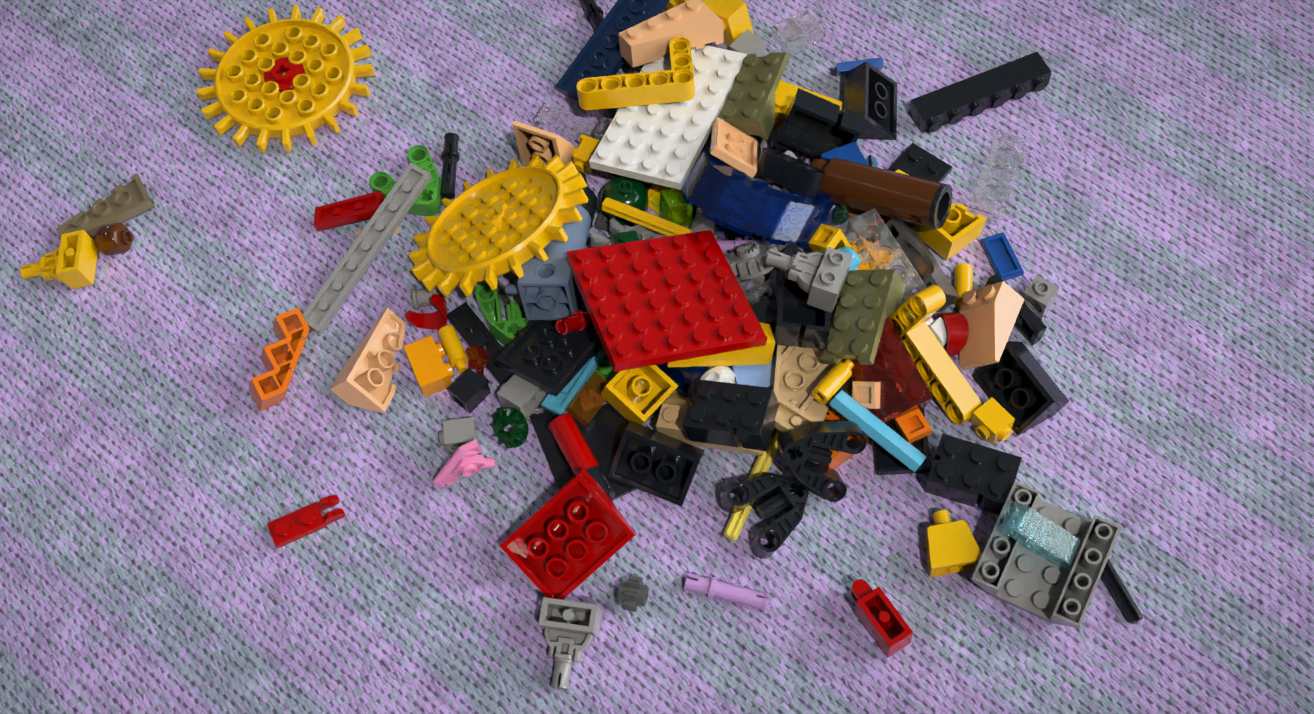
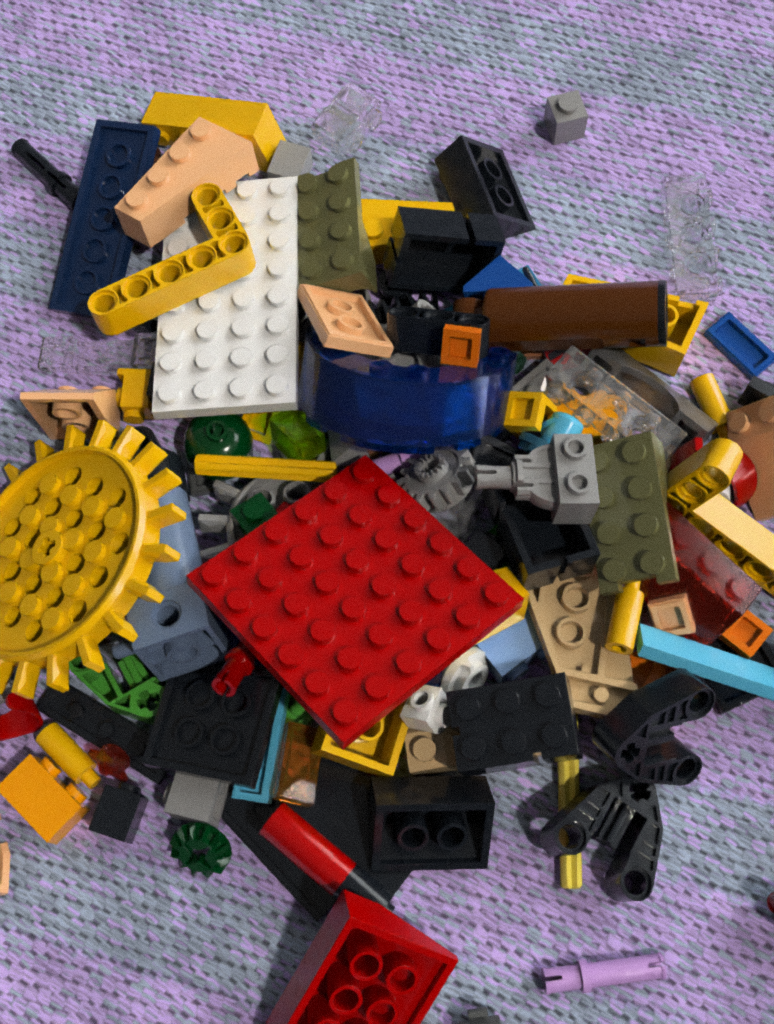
camera: 25 degrees left, 10 degrees up
(458, 433) = (133, 889): light grey brick -> none
(465, 462) = (163, 937): bright pink piece -> none
(680, 390) = (431, 715): none -> white plate
(797, 181) = (461, 345): none -> orange plate
(843, 67) = (436, 148): blue tile -> none
(921, 164) = (583, 256): black plate -> none
(947, 71) = (565, 117): none -> light grey brick
(980, 92) = (615, 130): black brick -> none

